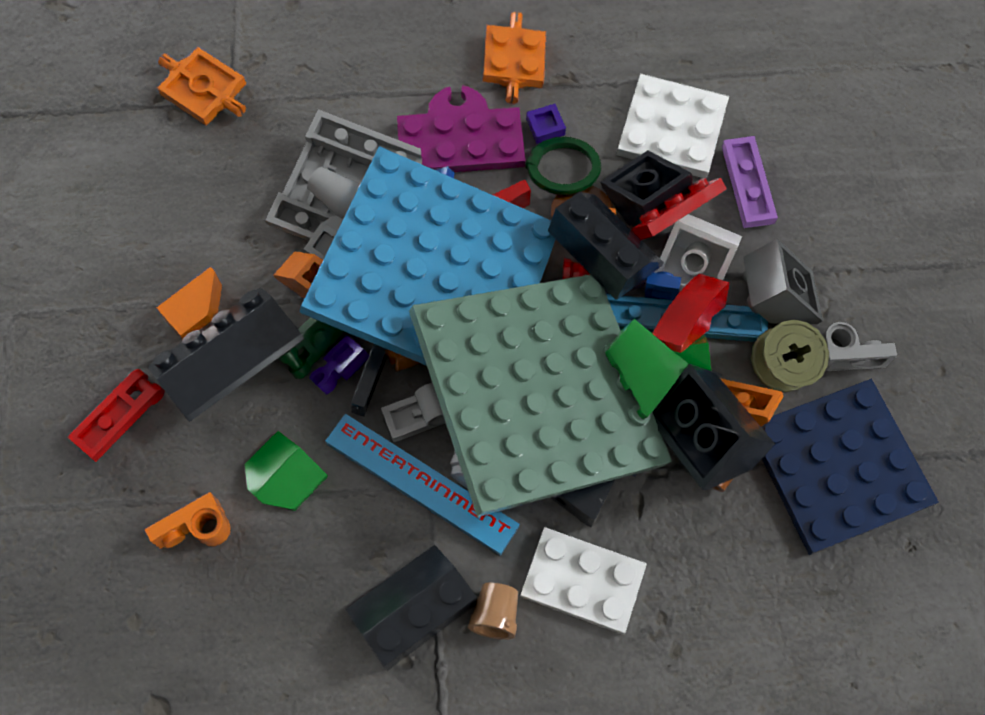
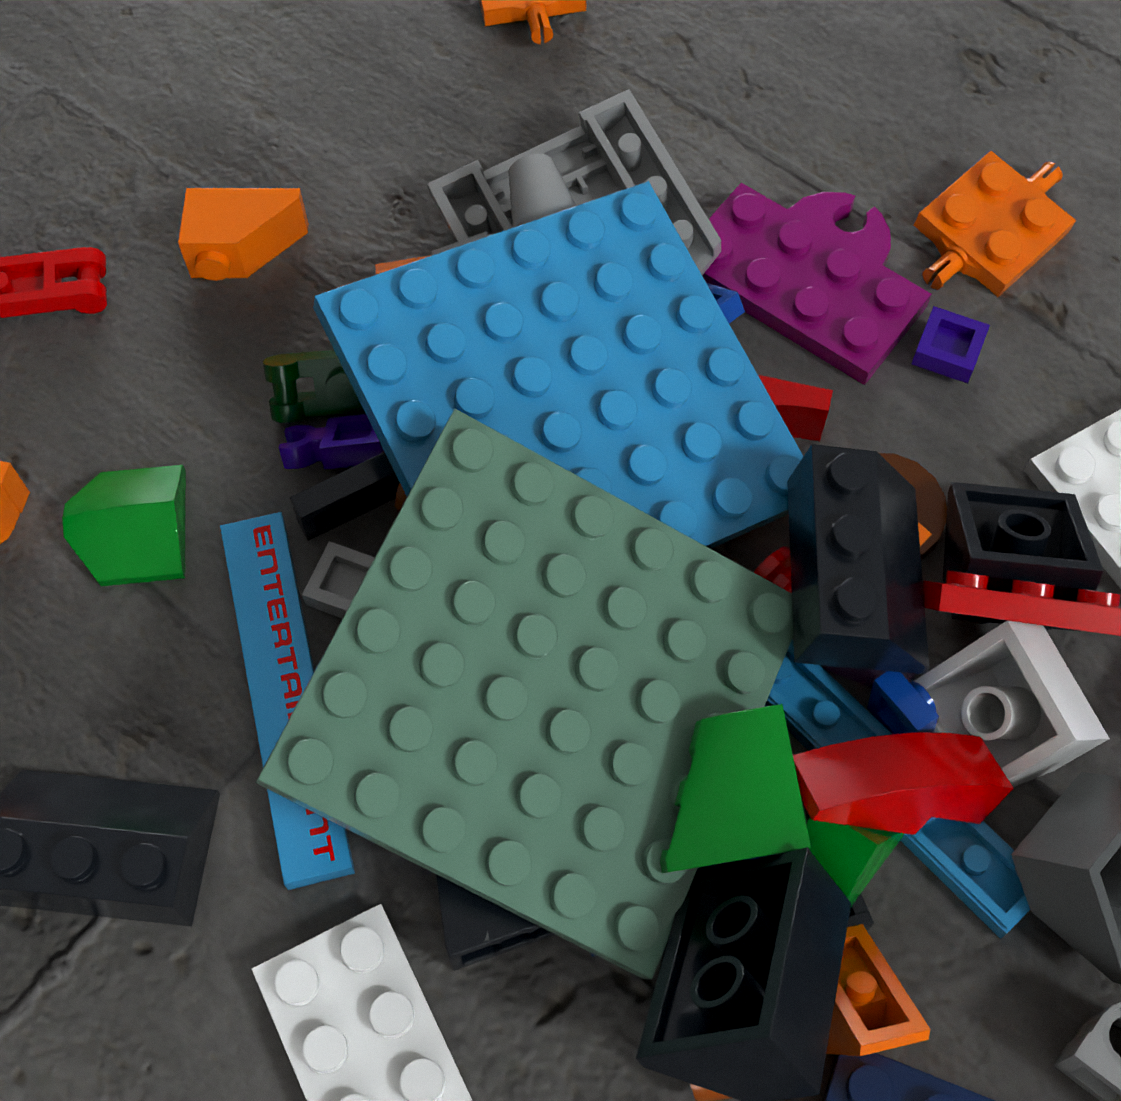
camera: 45 degrees right, 5 degrees down
(225, 353) = (202, 305): black slope -> none
(495, 612) = (191, 957): medium nougat piece -> none
(557, 143) = (935, 382): dark green piece -> none
(798, 372) = (1036, 960): olive piece -> none

